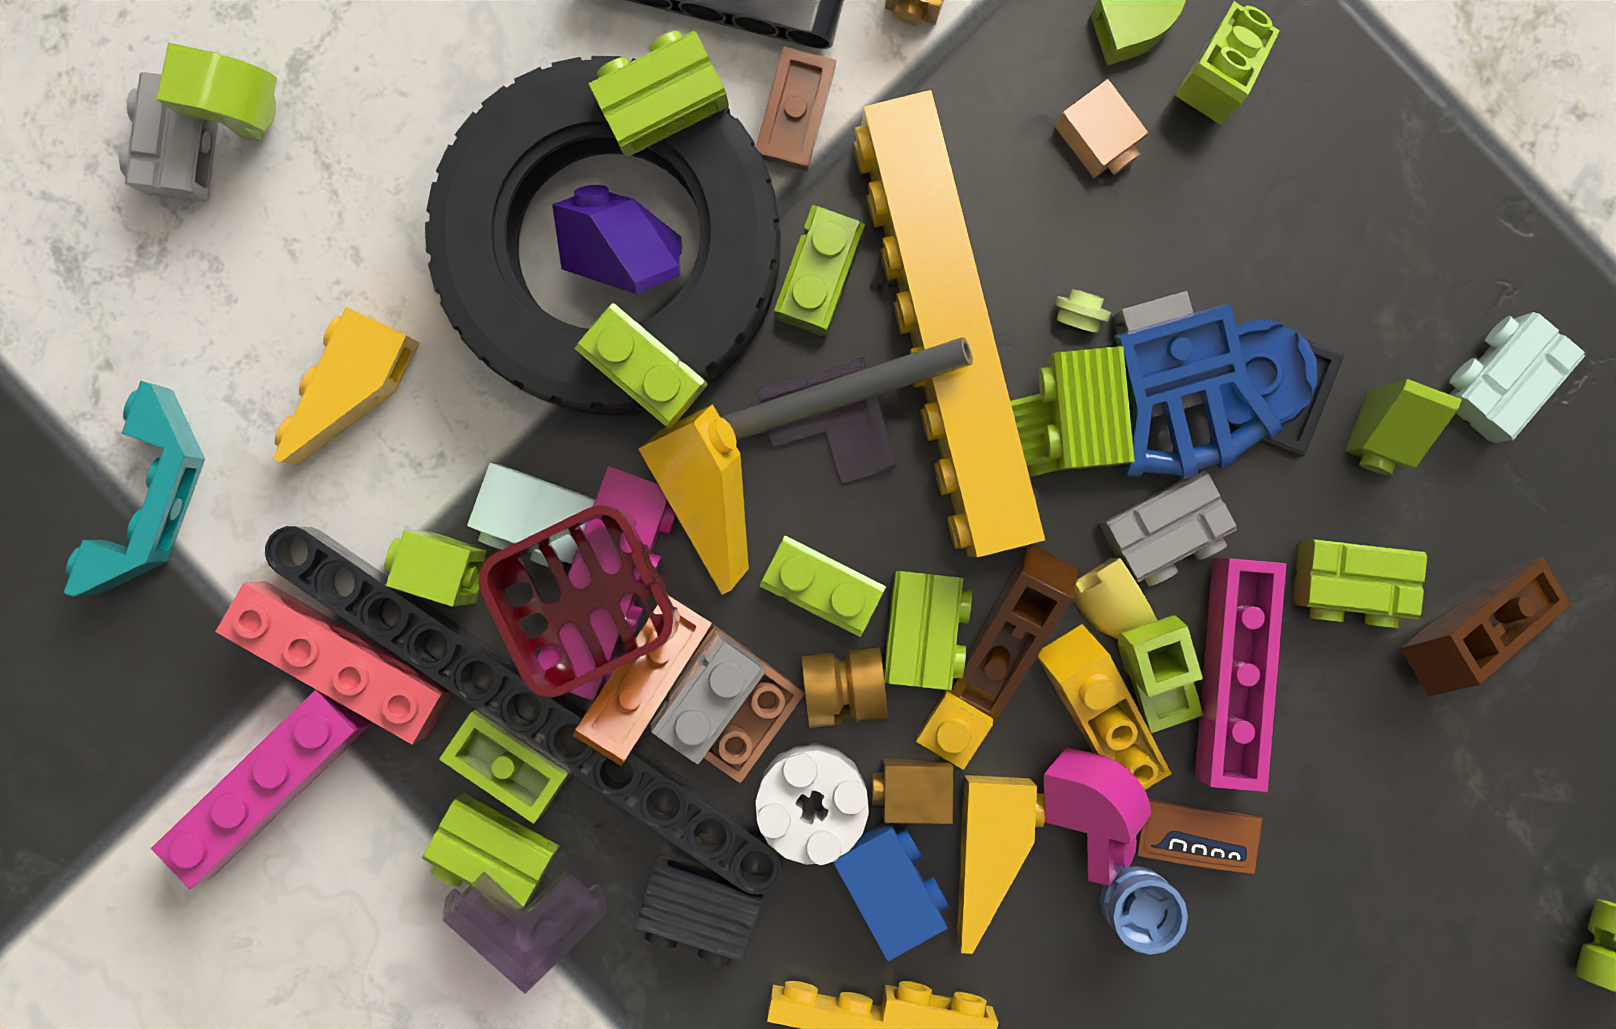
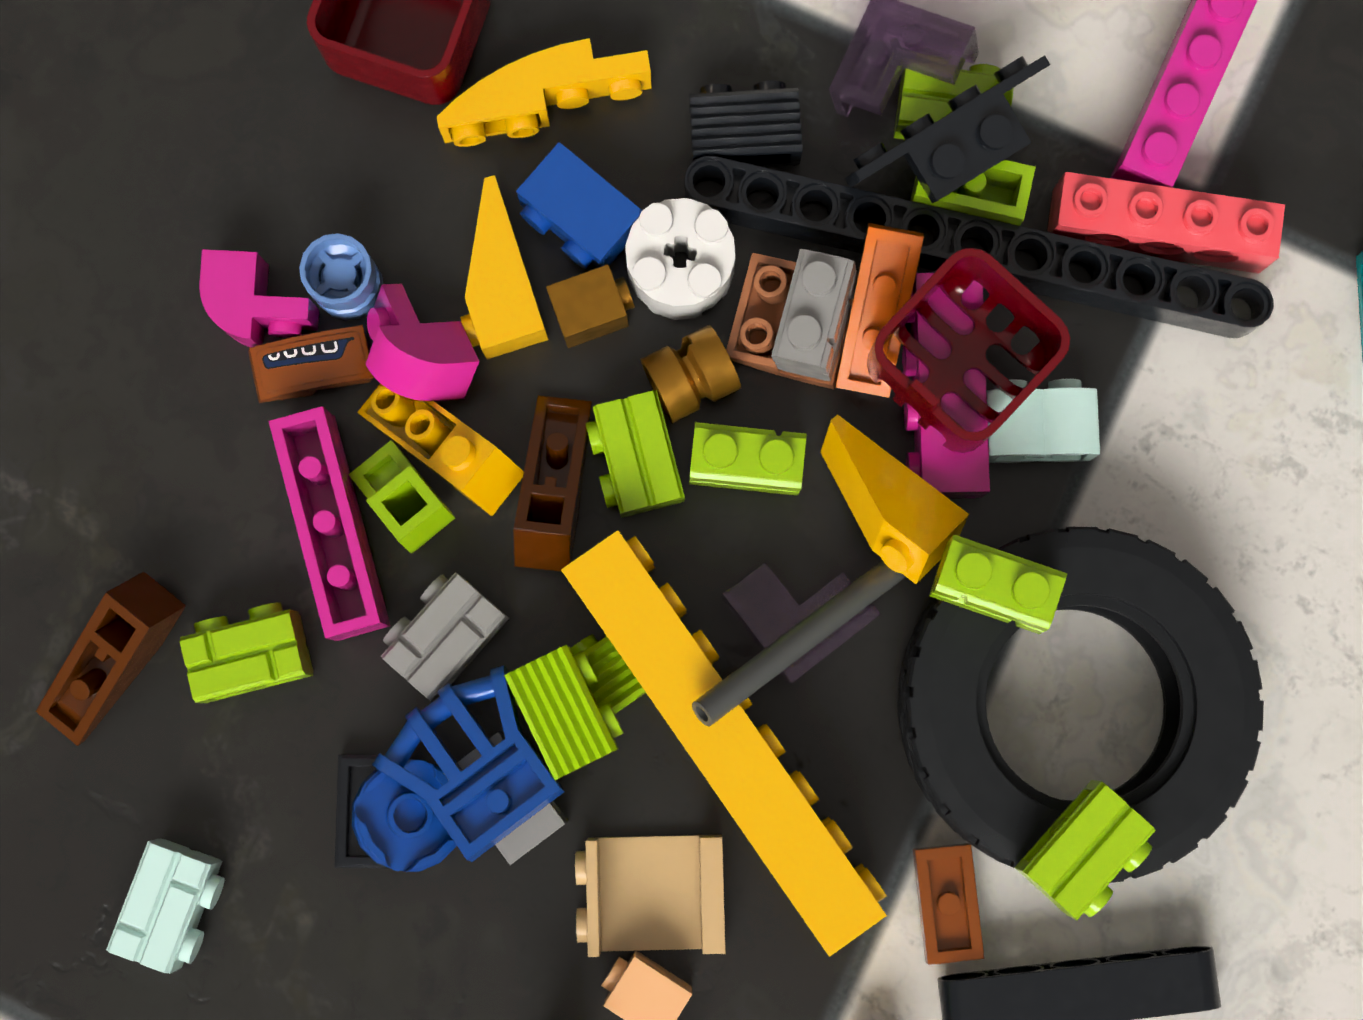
camera: 160 degrees right, 5 degrees down
(353, 376) = (1258, 492): yellow slope -> none
(435, 567) = (1110, 338): lime brick -> none
(499, 810) = (961, 144): none -> black bracket
(615, 240) = (1066, 699): dark purple slope -> none
(819, 271) = (864, 752): lime brick -> none
(954, 730) = (573, 375): yellow plate -> none
(1062, 221) = (652, 893): none -> tan panel
(1082, 311) = (600, 812): yellowish green plate -> none
(1112, 599) = (473, 549): light yellow brick -> none
(1250, 924) = (237, 299): none -> dark pink brick
(1399, 425) = (261, 812): lime slope -> none

